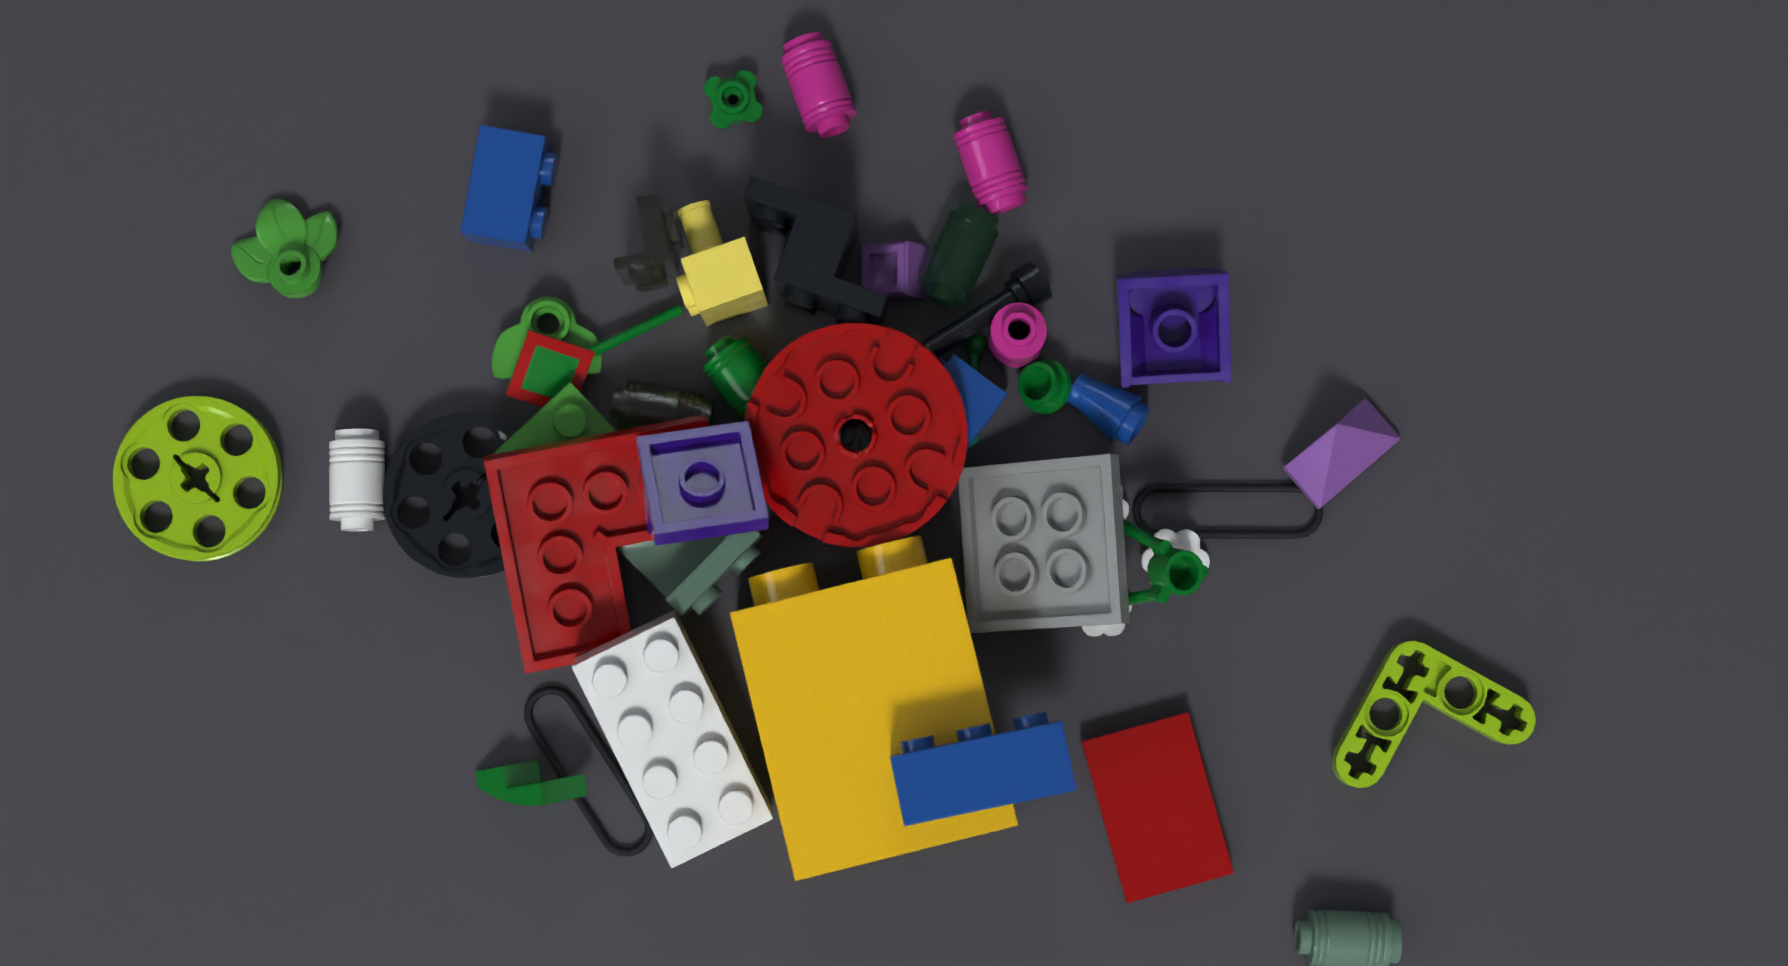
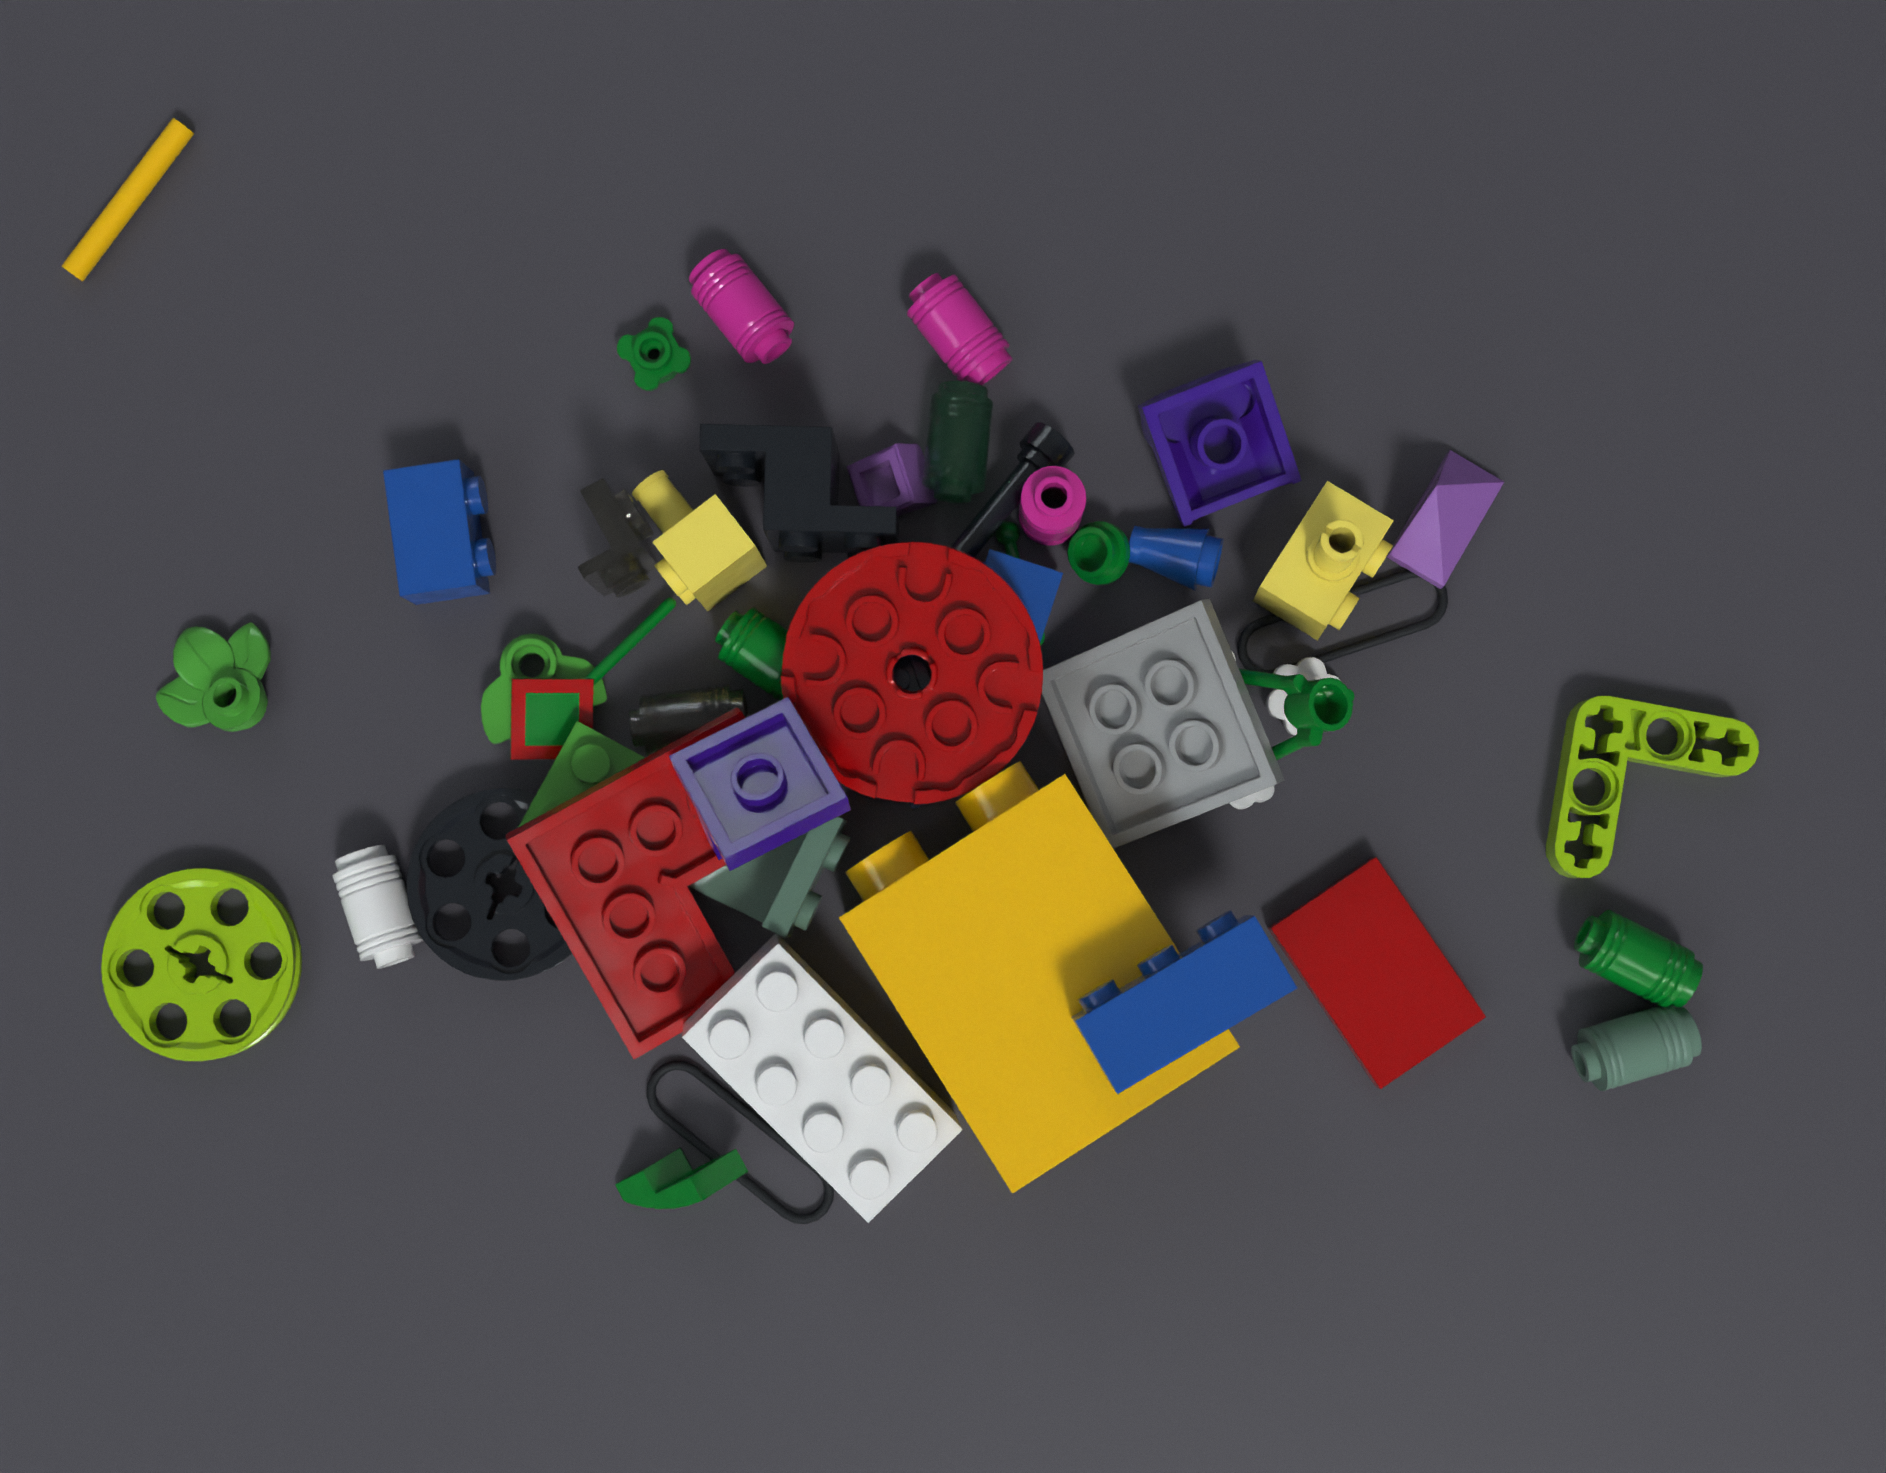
camera: 15 degrees left, 0 degrees up
(1227, 455) = (1323, 560): none -> light yellow brick
(1374, 868) = (1638, 959): none -> green head

